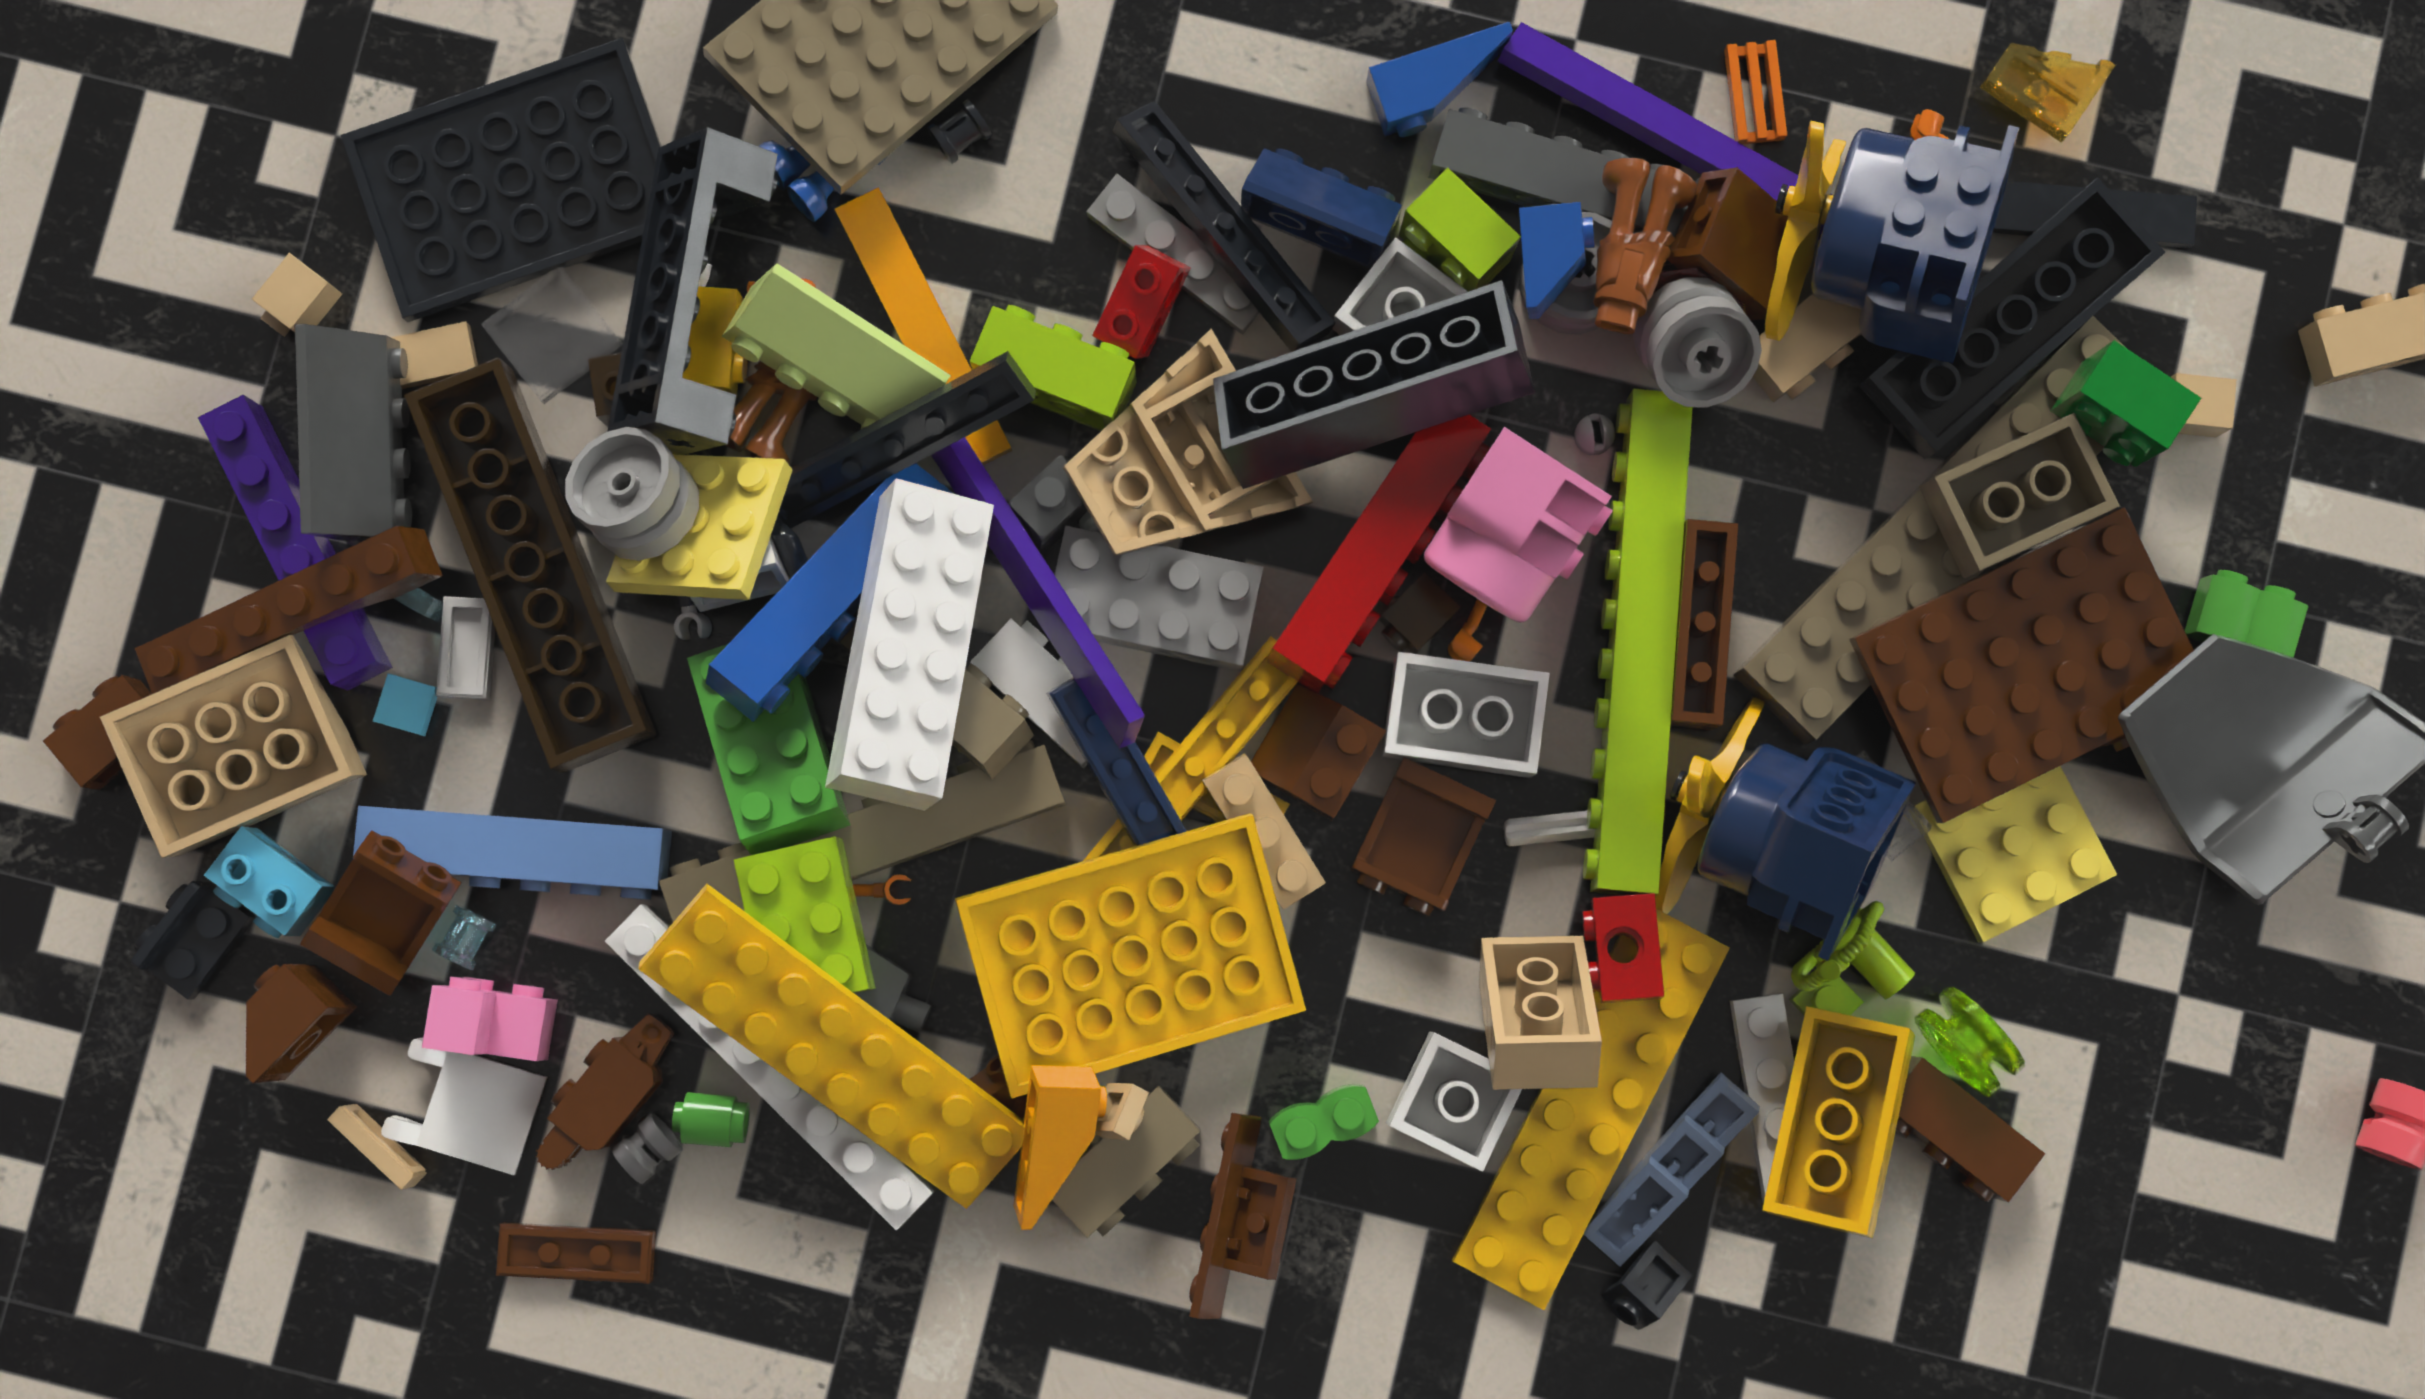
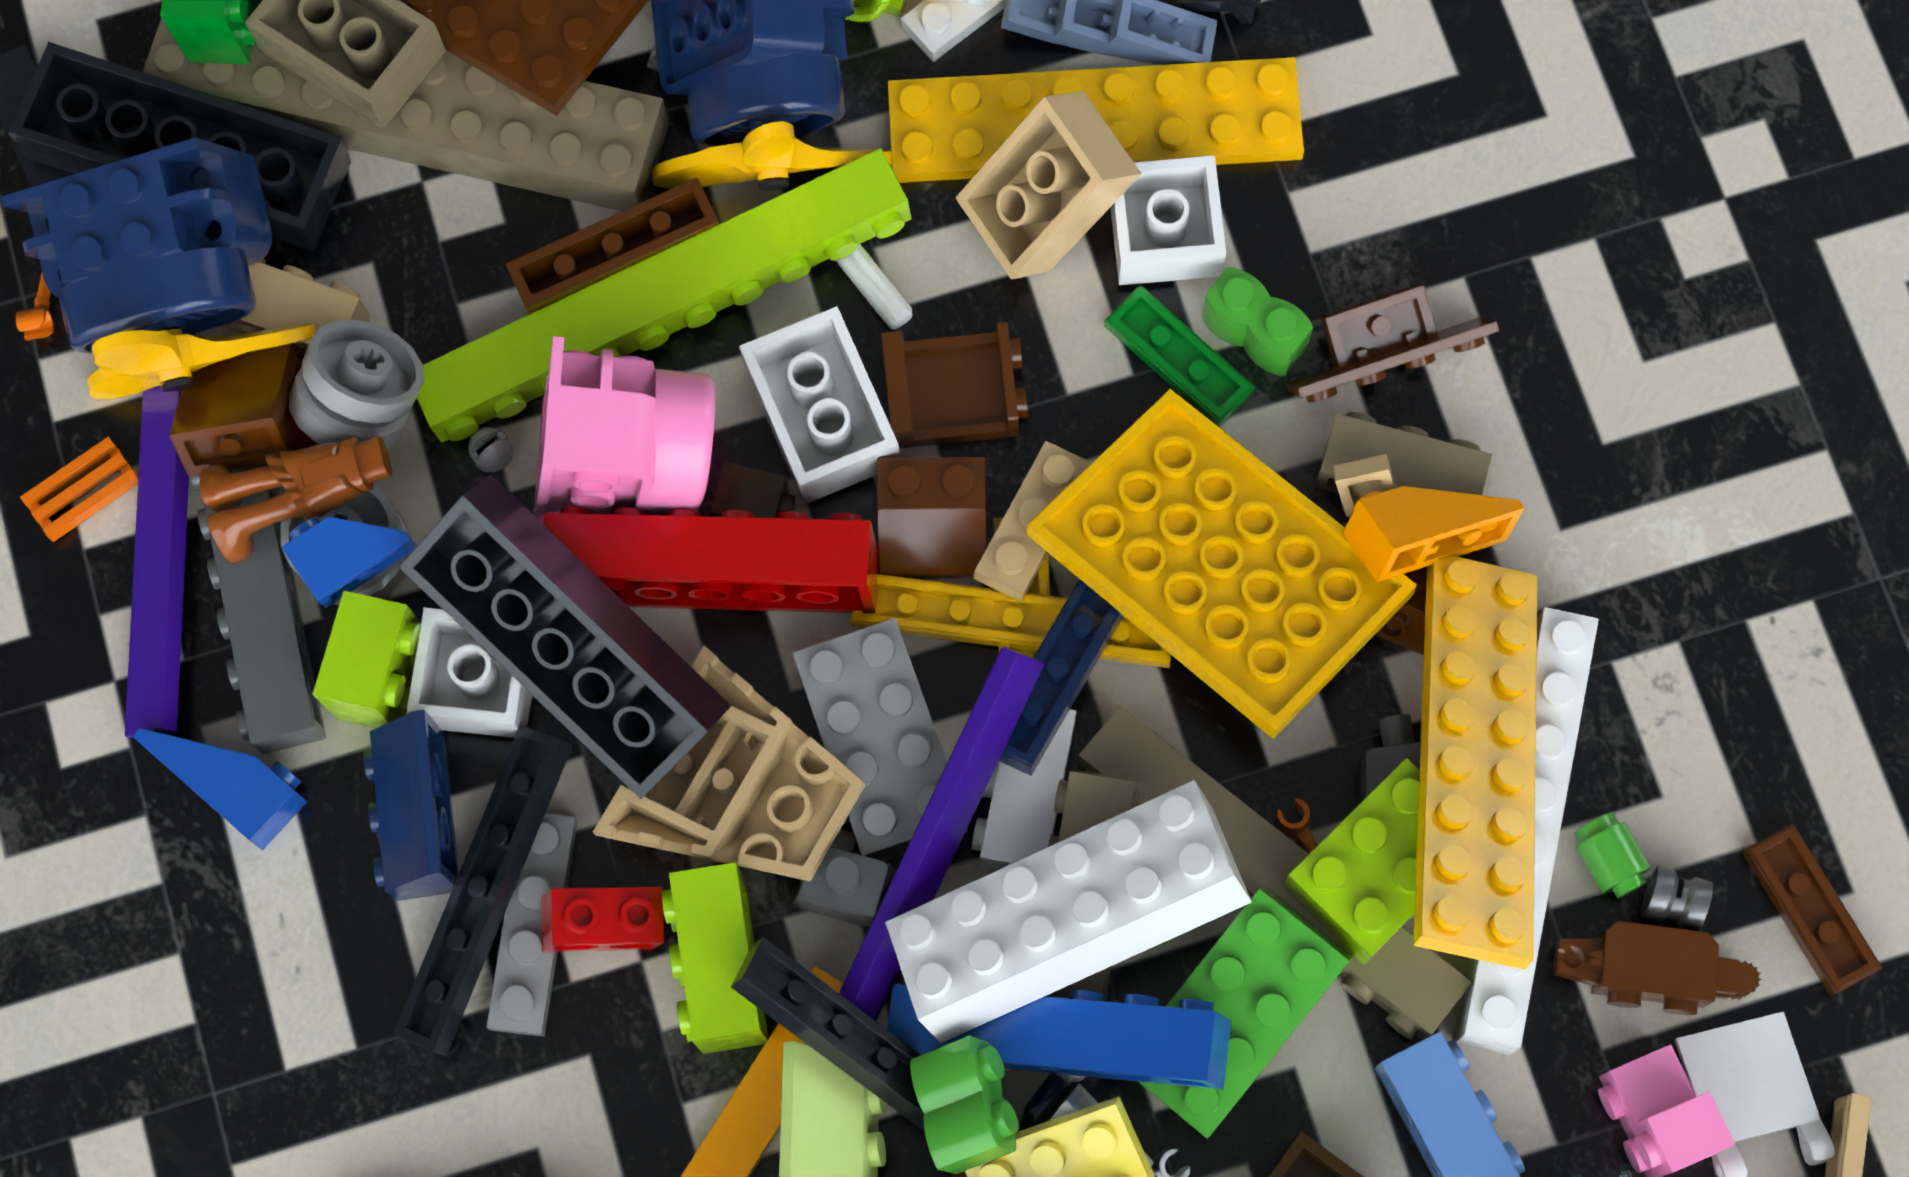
camera: 115 degrees left, 10 degrees down
(817, 481) = (964, 1104): none -> bright green brick
(1337, 1042) = (1179, 356): none -> green tile
(1463, 645) = (755, 452): orange hand -> none
(1637, 919) = (955, 125): red brick -> none

